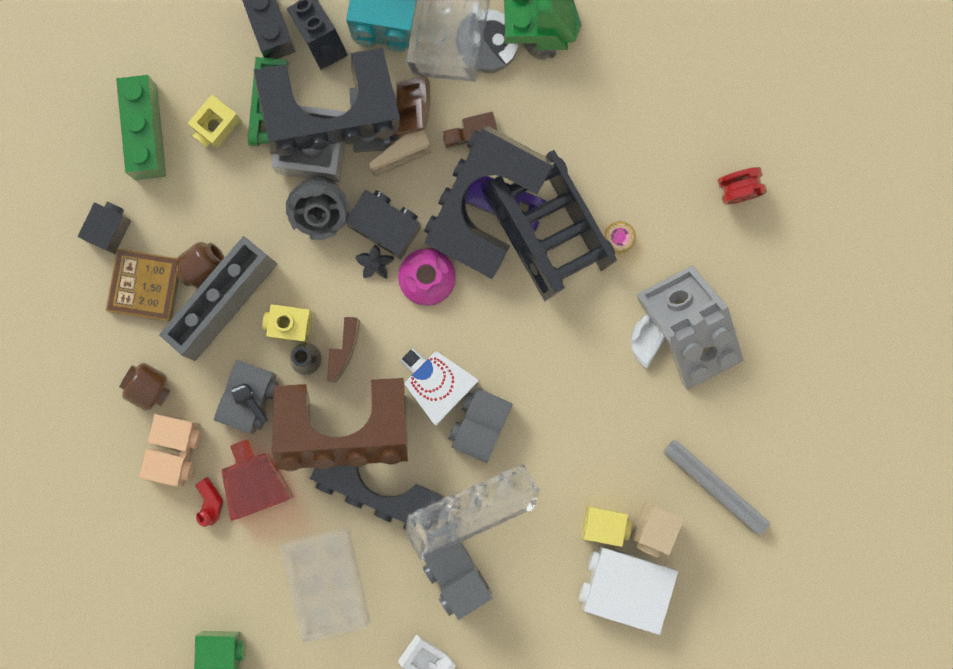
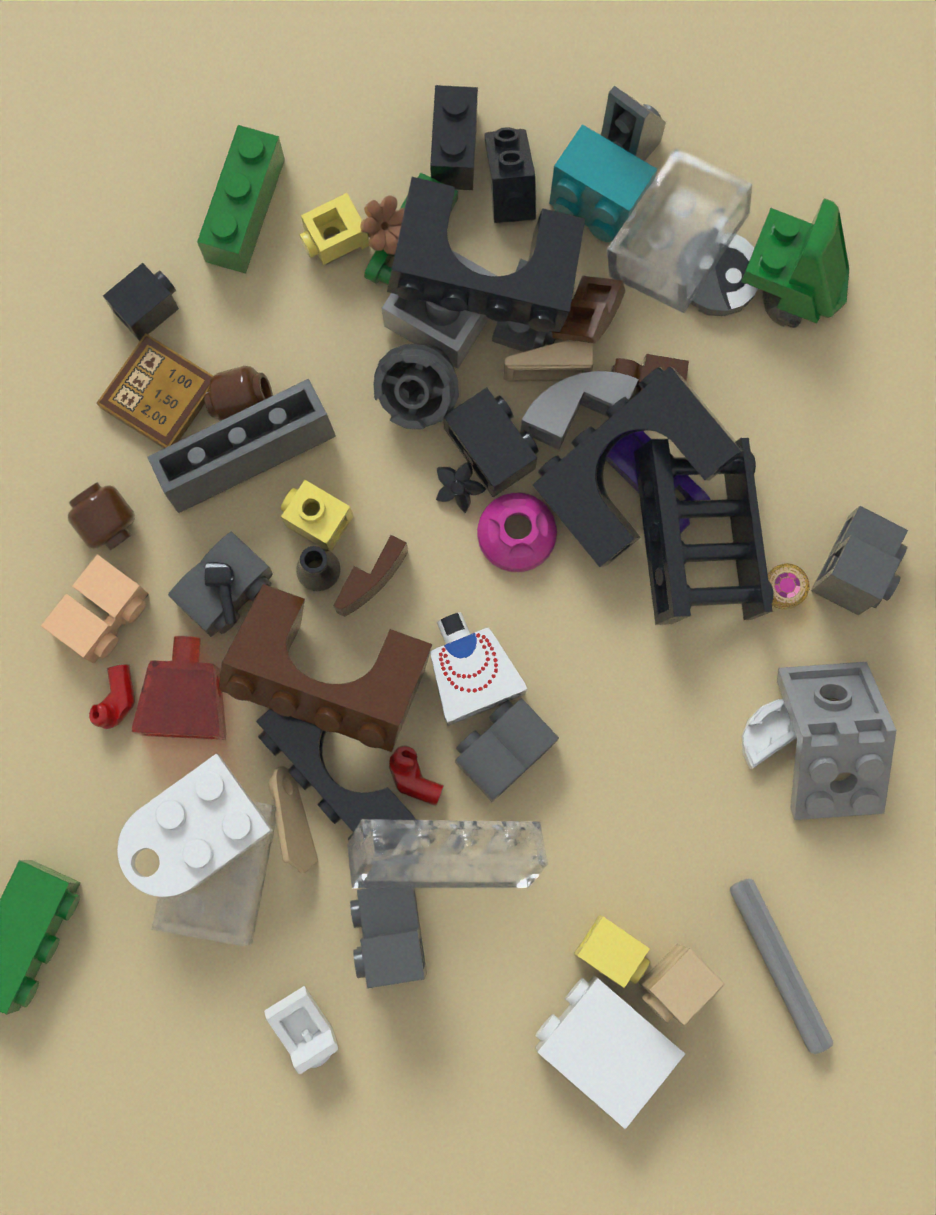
camera: 25 degrees right, 5 degrees down
(246, 105) = (383, 224): none -> nougat plant
(301, 568) = (192, 829): none -> white plate
(362, 533) = (291, 821): none -> tan piece
(417, 183) = (556, 407): none -> light grey brick
(426, 471) = (409, 779): none -> red arm
(663, 200) = (862, 562): none -> dark grey brick

